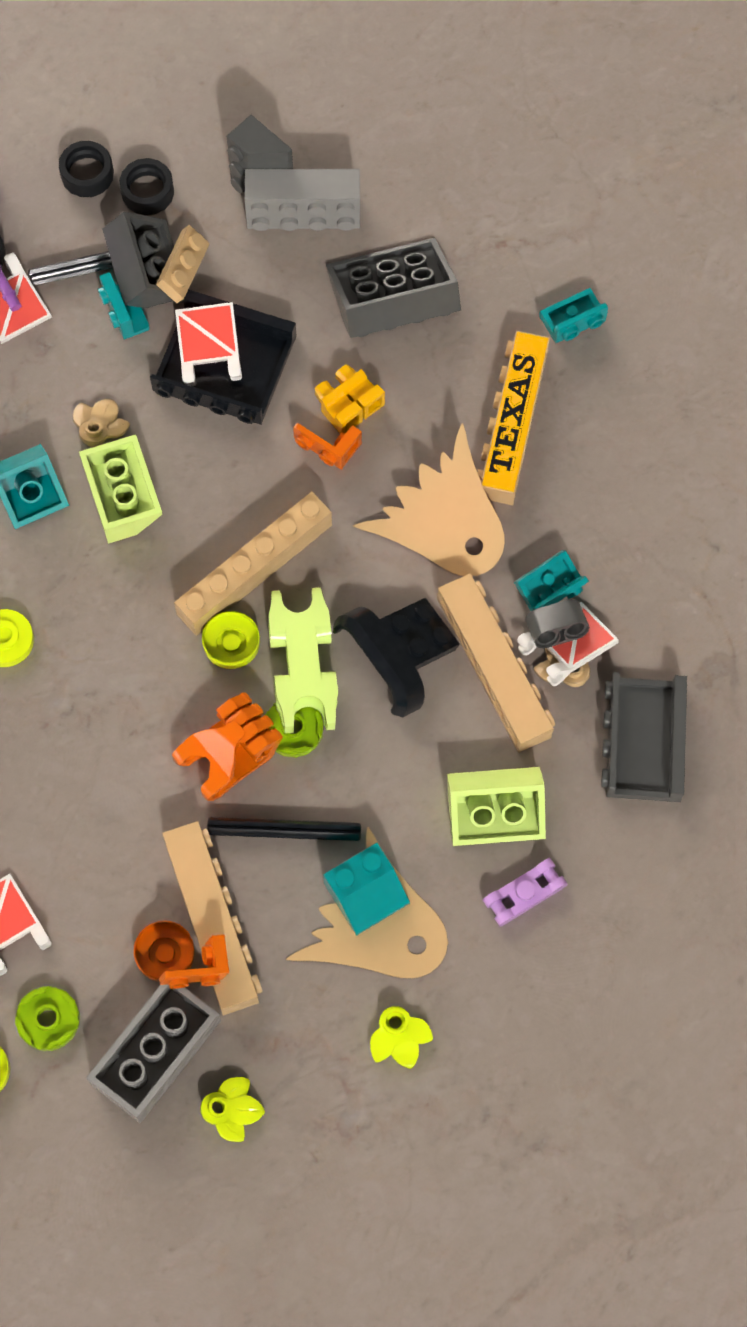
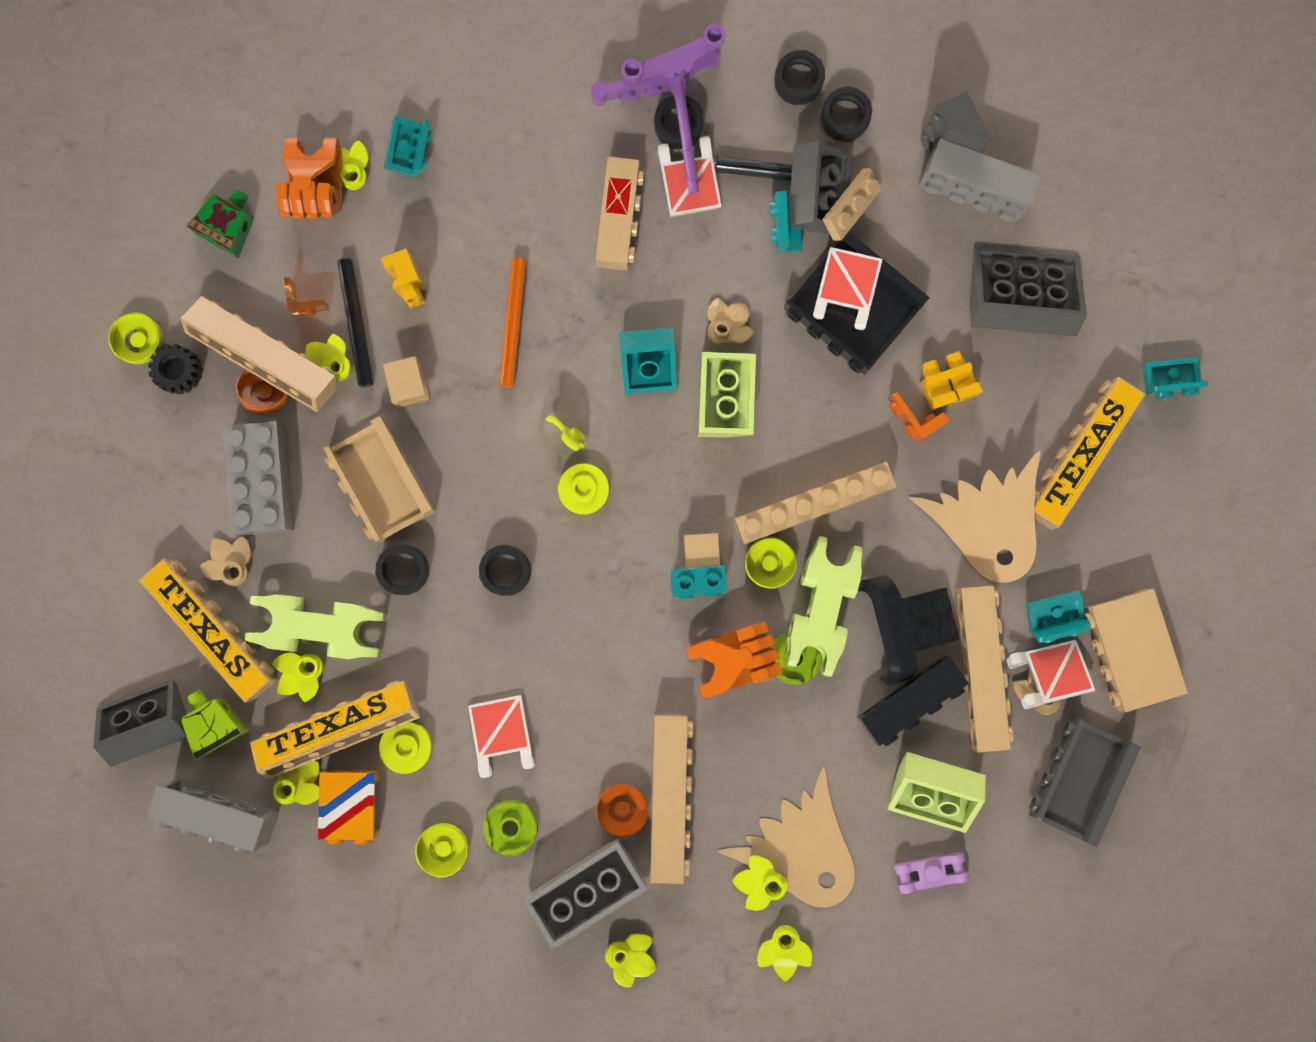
camera: 20 degrees right, 15 degrees up
(154, 656) = (701, 550): none -> tan piece
(158, 679) = (698, 581): none -> teal bracket
(214, 955) = (660, 844): orange bracket -> none
(284, 829) = (755, 743): black axle -> none
(339, 973) = (755, 883): none -> neon yellow plate
(366, 888) = (803, 822): teal slope -> none
(434, 721) = (913, 700): none -> black brick
(557, 623) = (1049, 657): dark grey beam -> none
(643, 587) = (1135, 651): none -> tan panel

